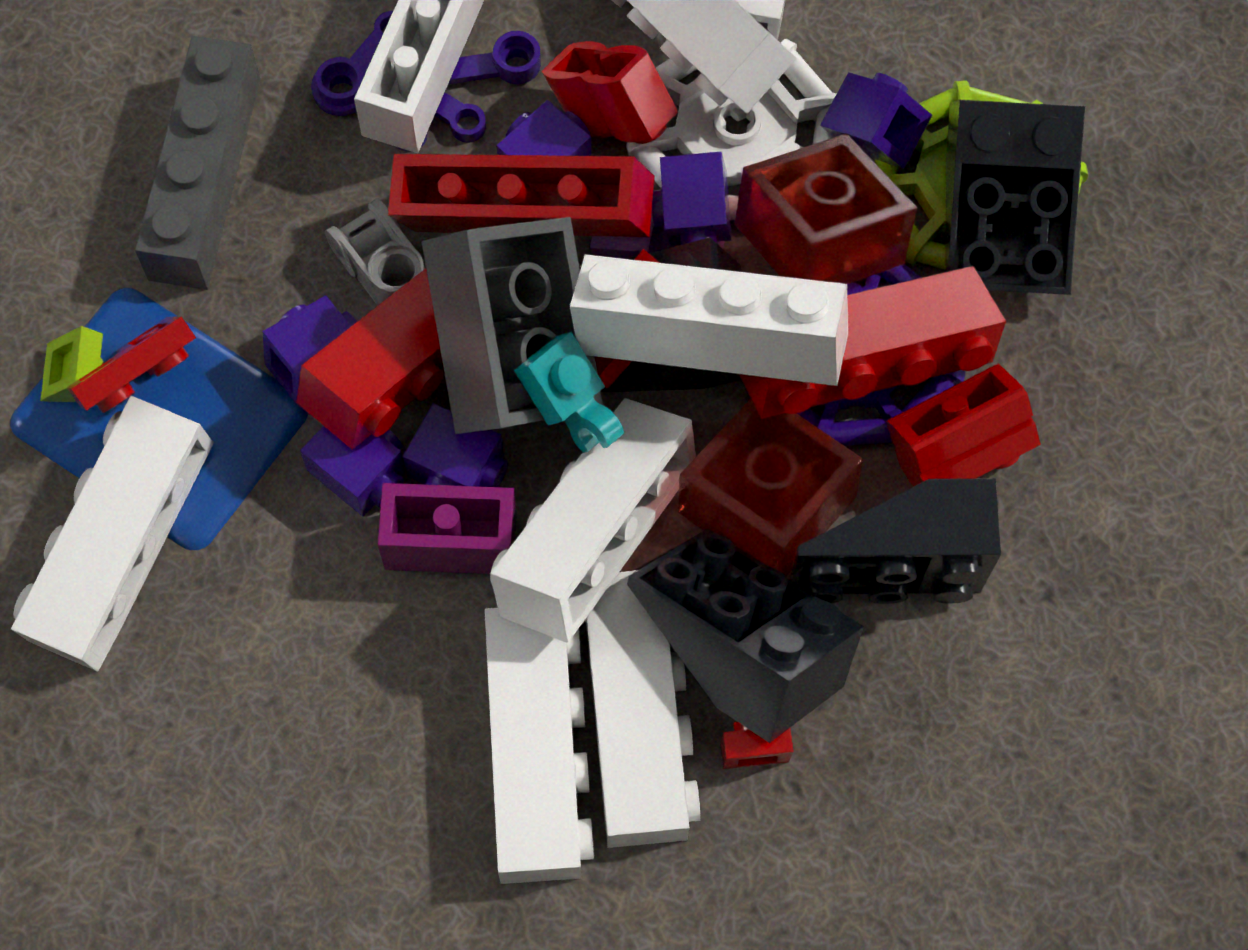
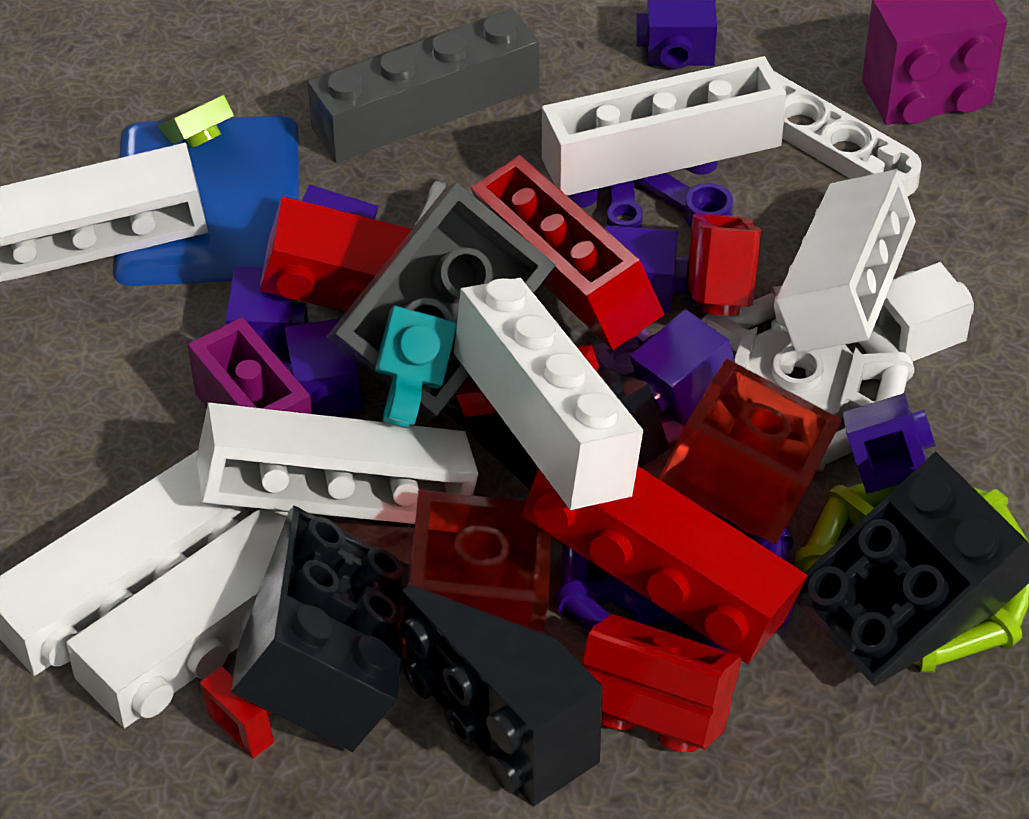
camera: 55 degrees right, 20 degrees down
(151, 351) = (237, 135): red plate -> none

